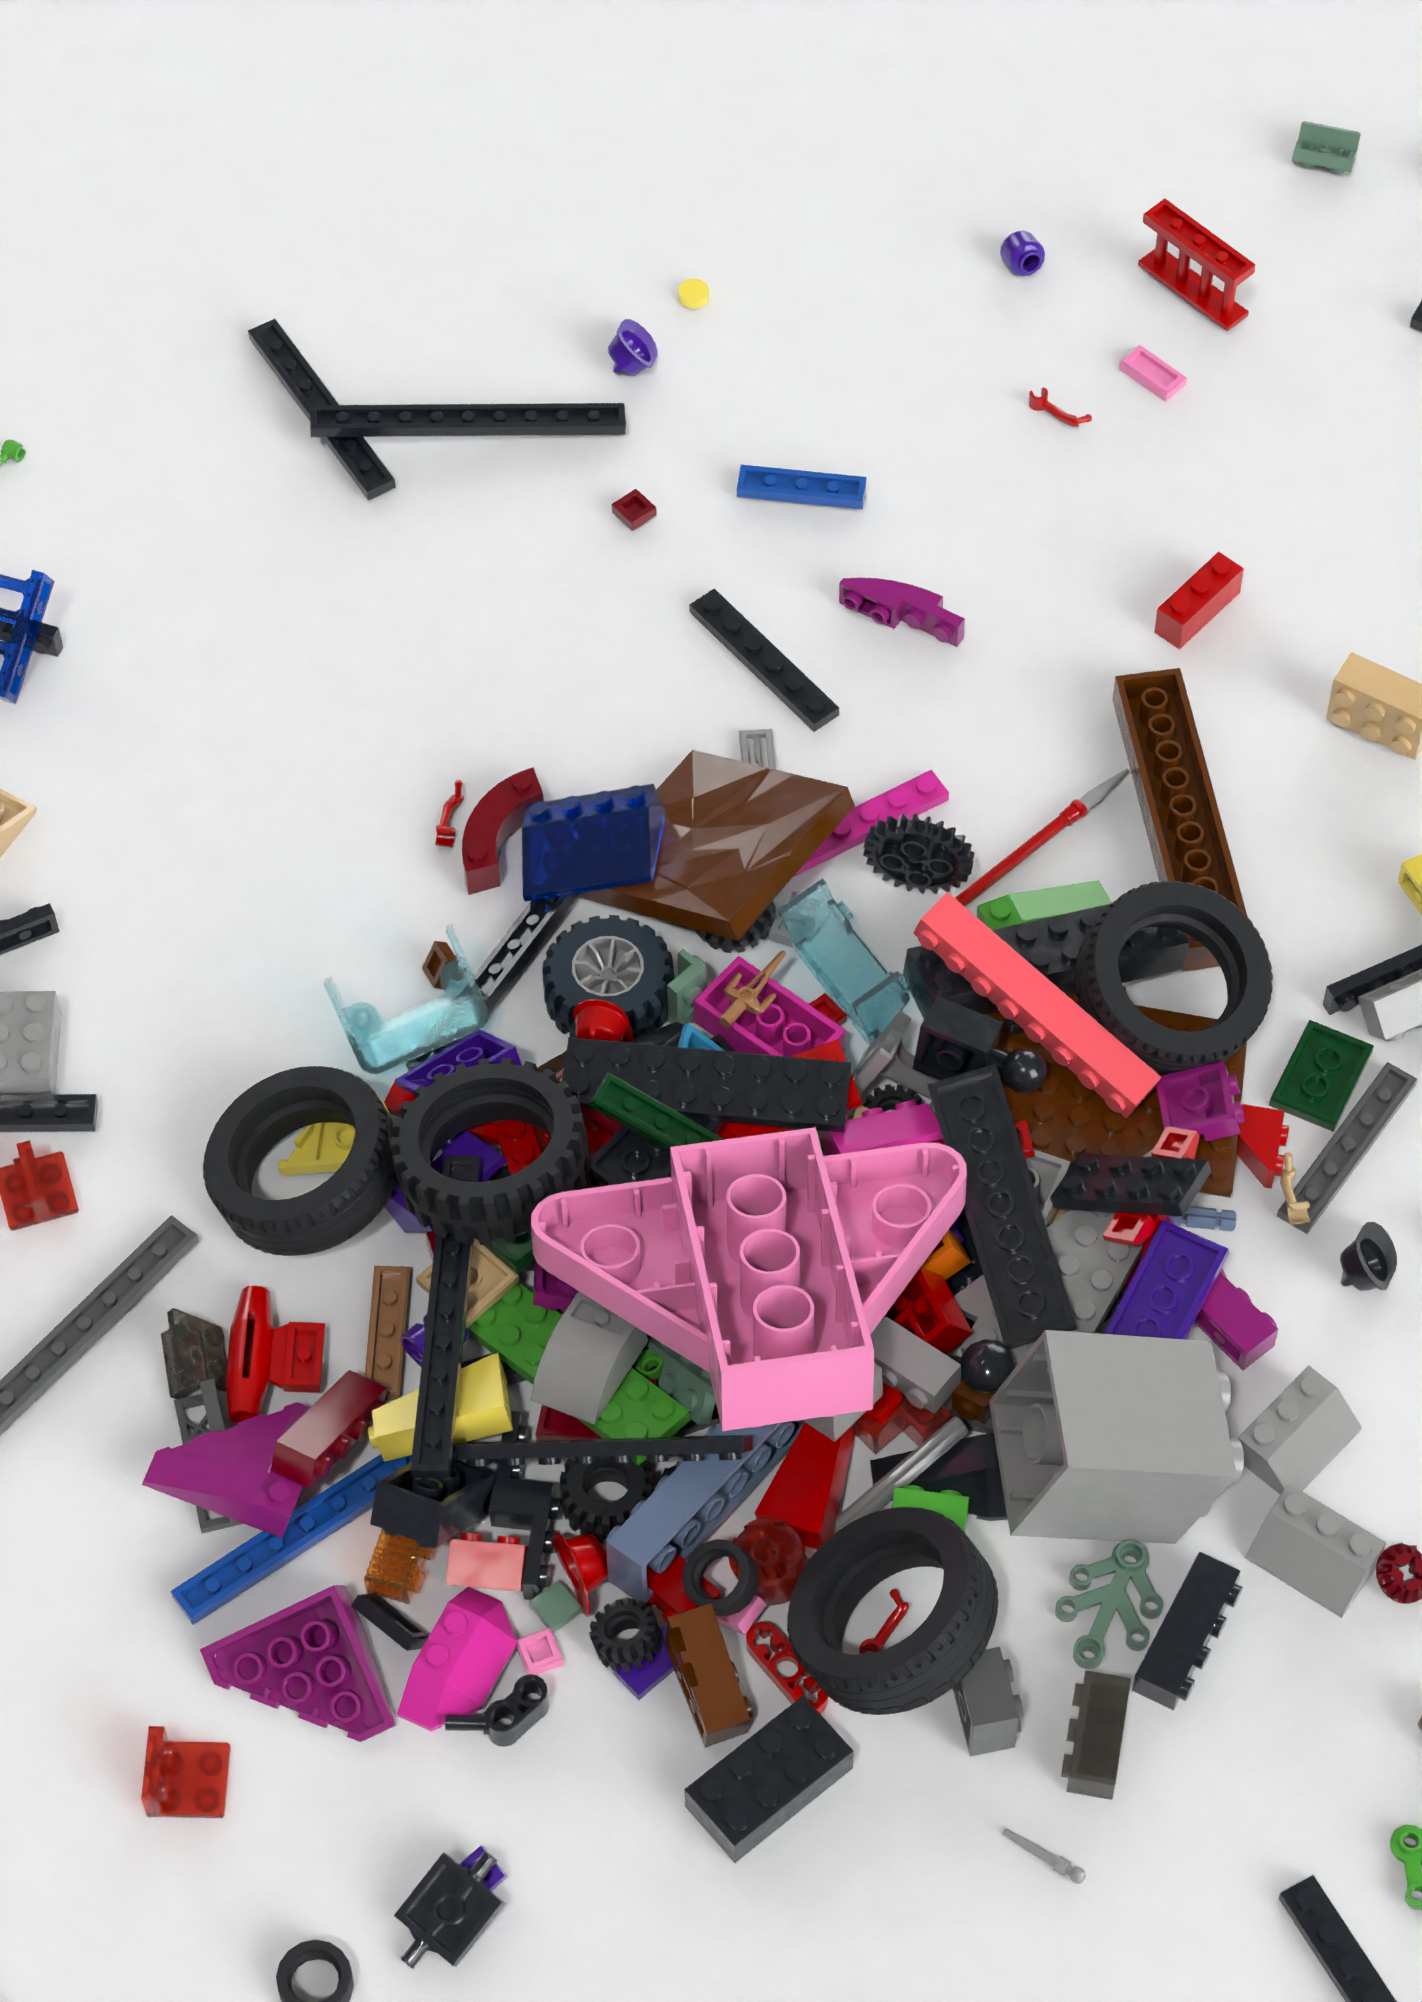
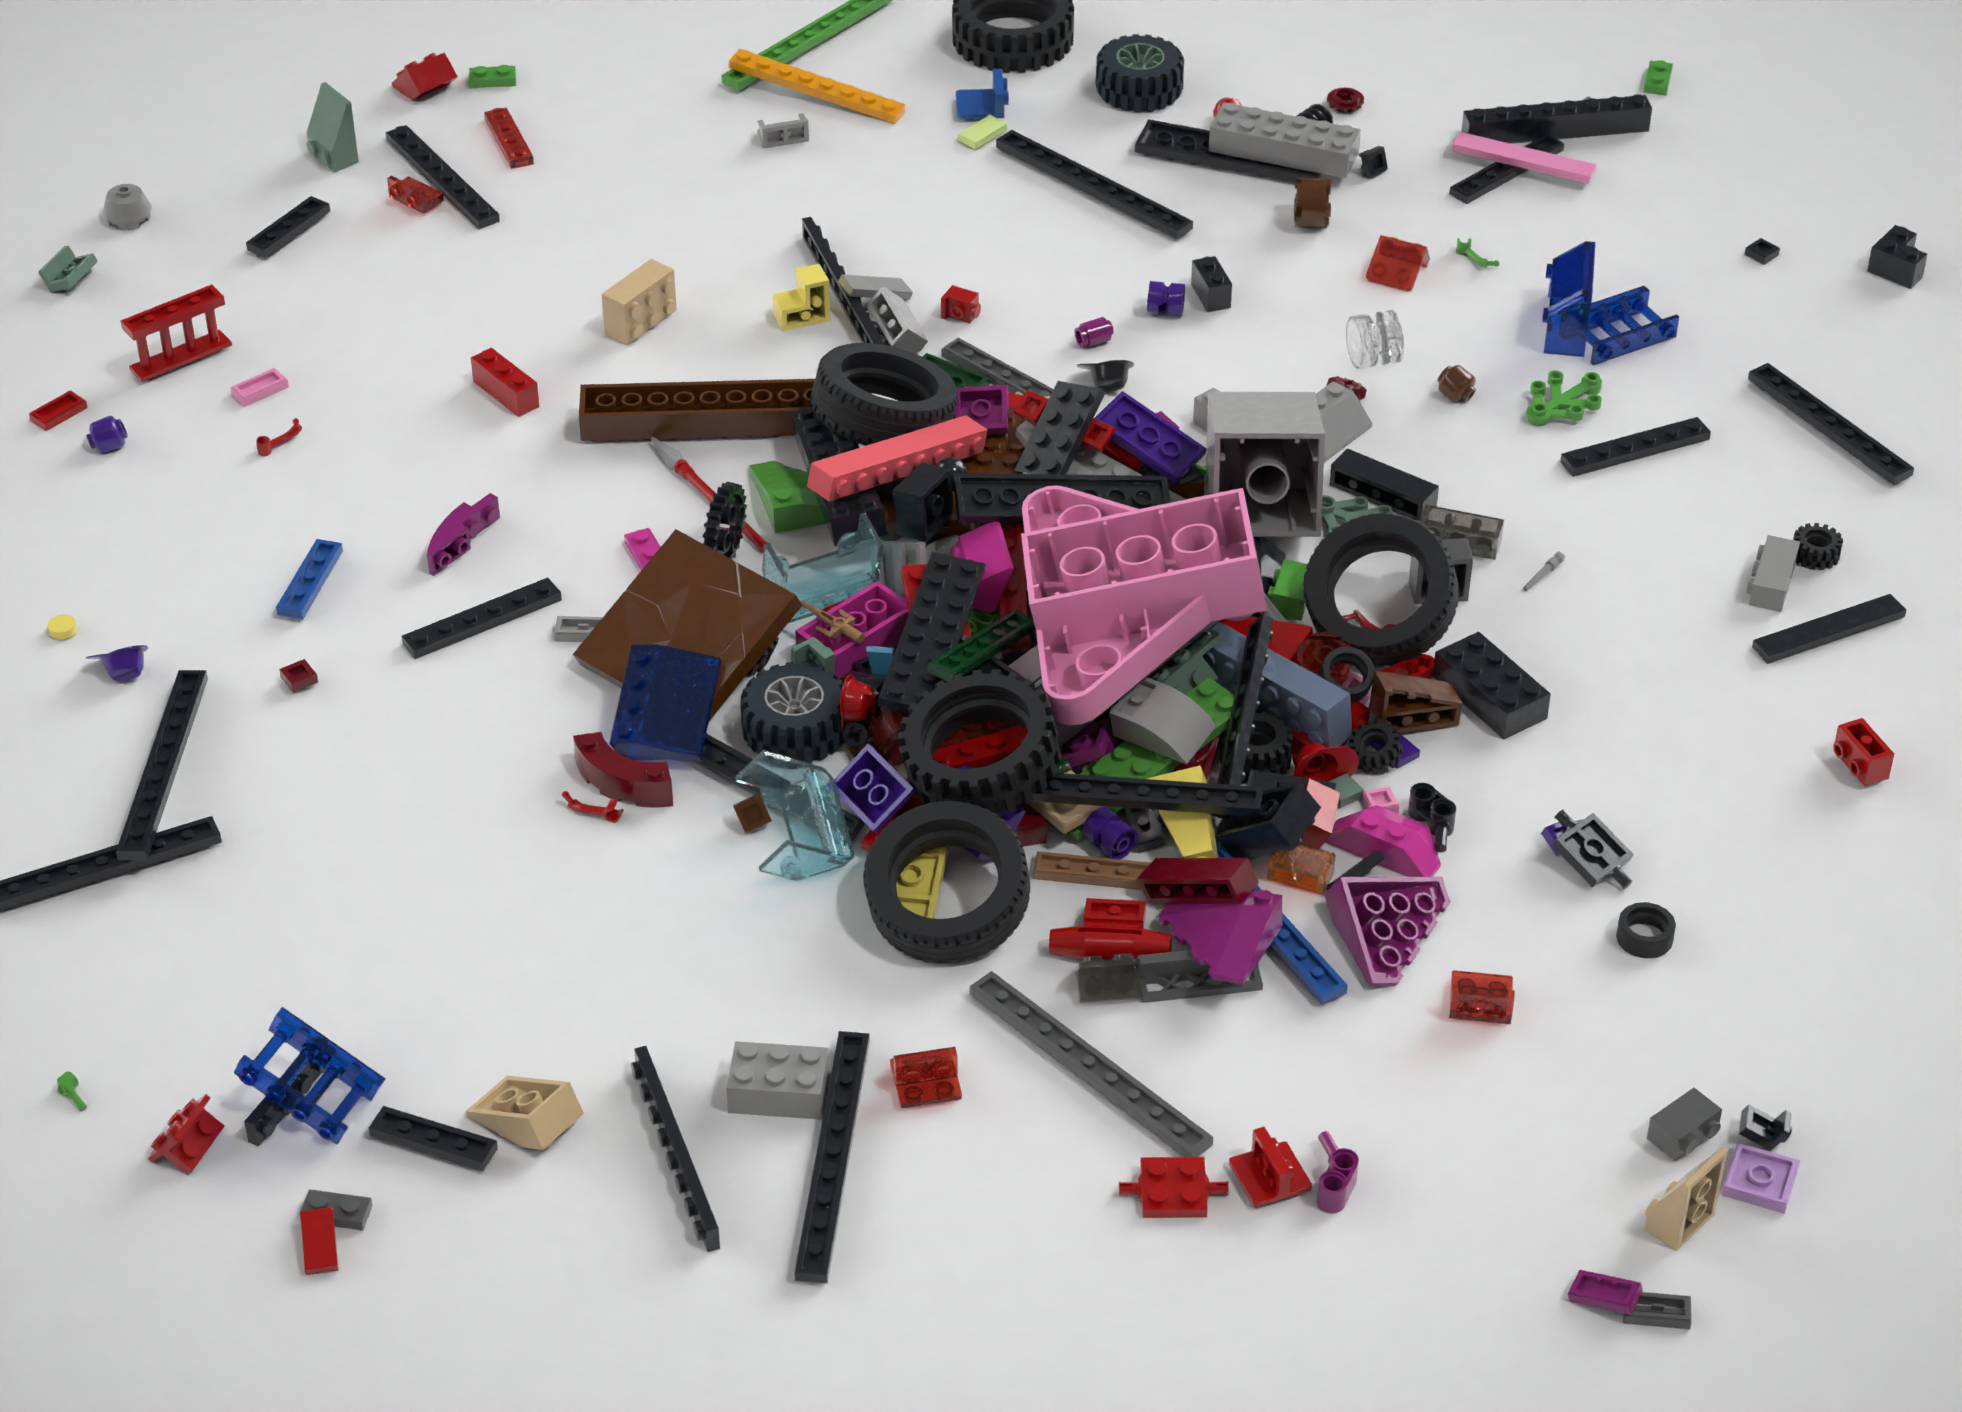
camera: 85 degrees left, 15 degrees down
(1070, 205) = (58, 410): none -> red tile

